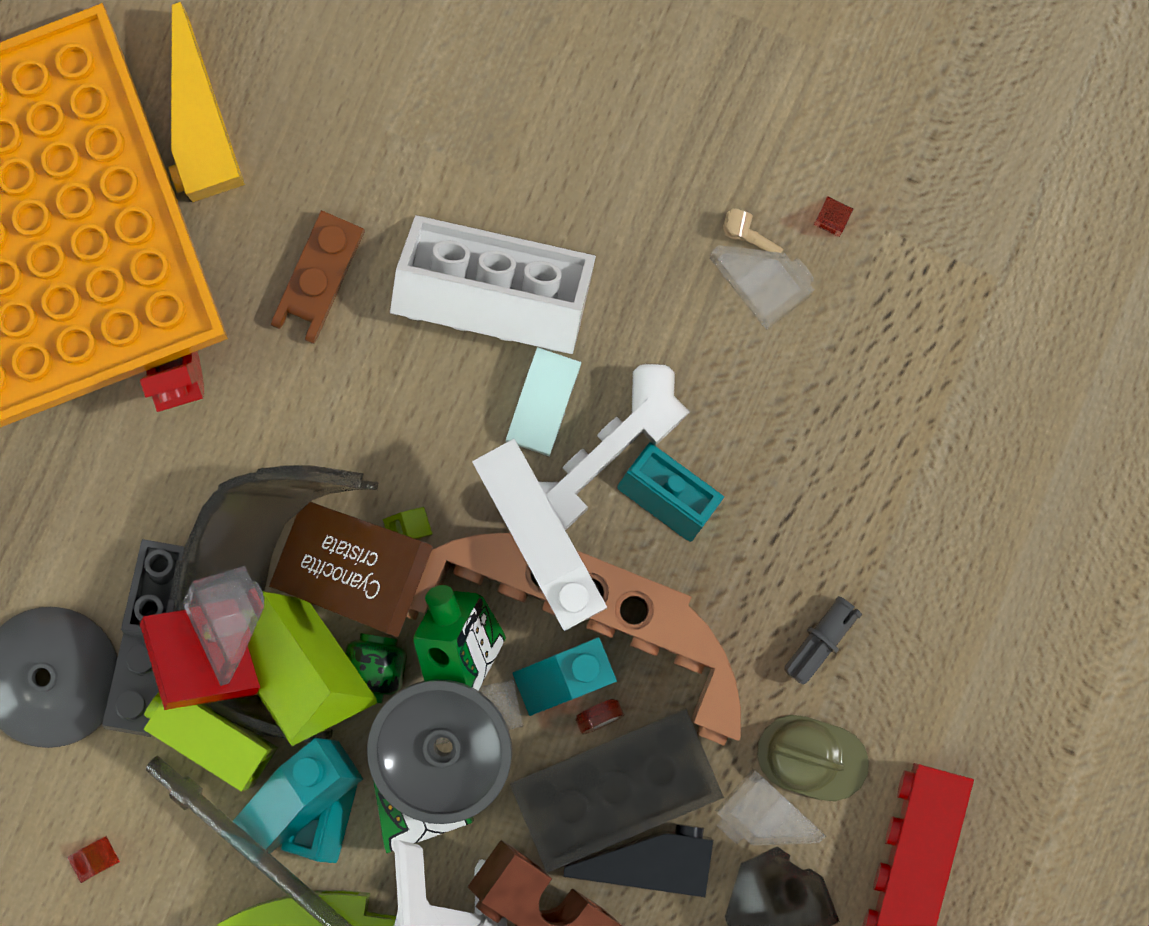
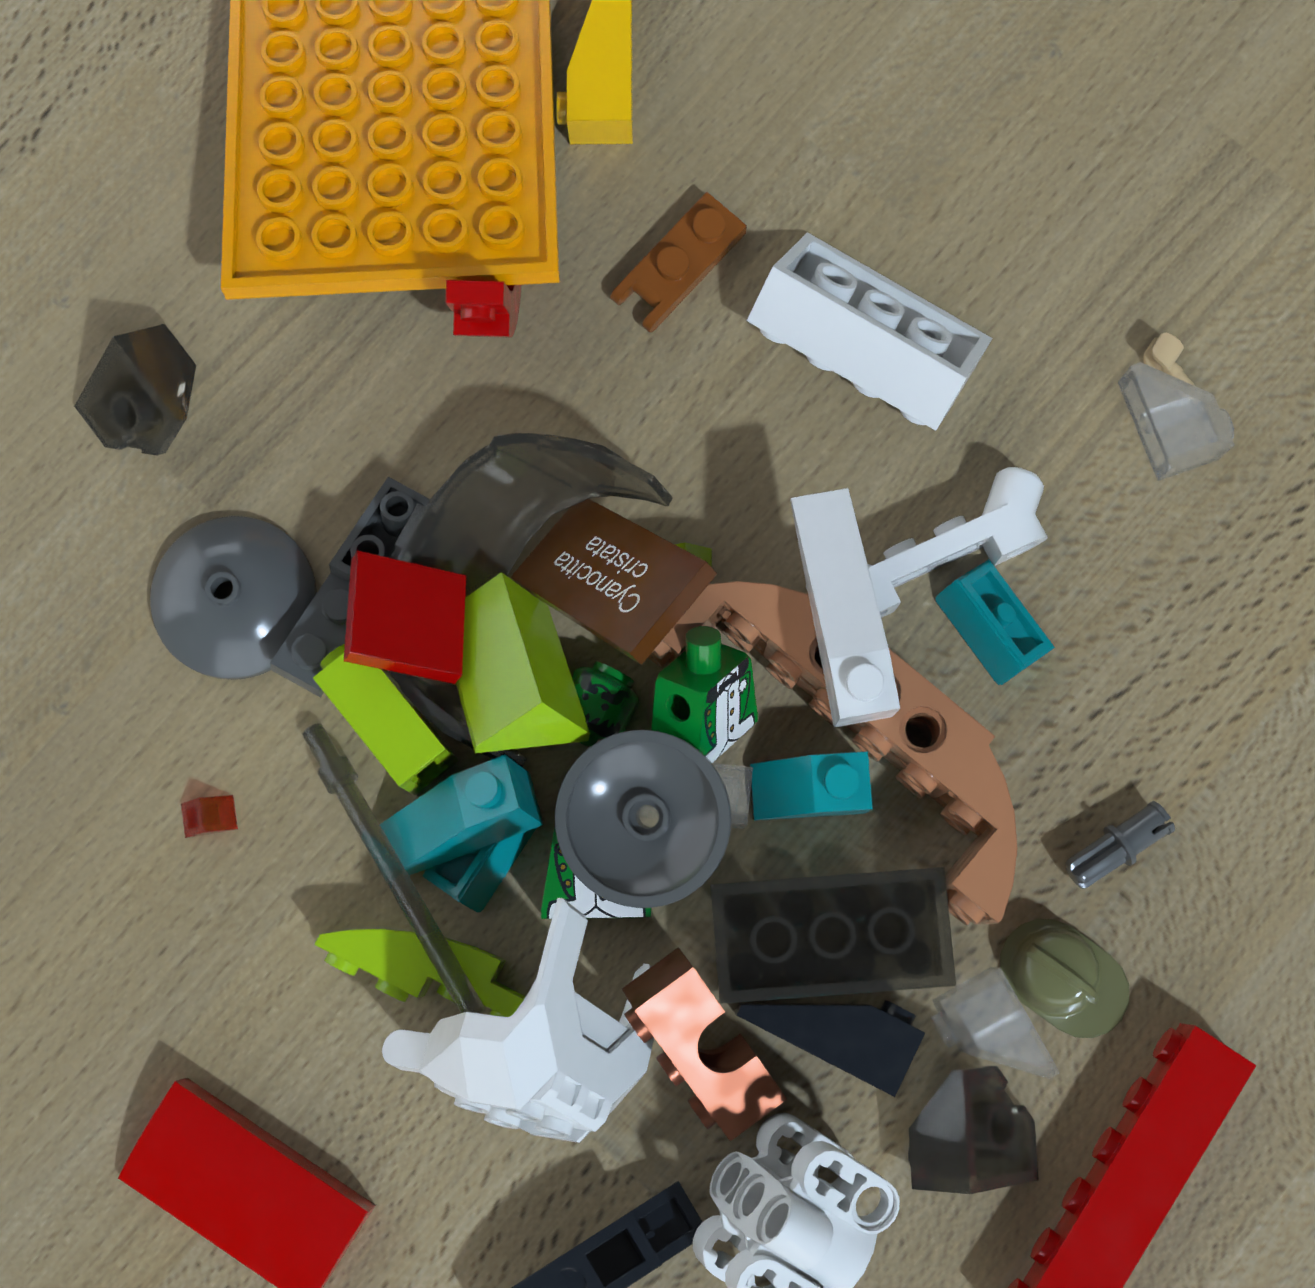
camera: 20 degrees right, 5 degrees down
(224, 617) = (449, 582): clear slope -> none
(543, 401) = (888, 471): light aqua slope -> none
(599, 716) = (835, 845): clear red tile -> none
(833, 216) = (1271, 382): clear red piece -> none

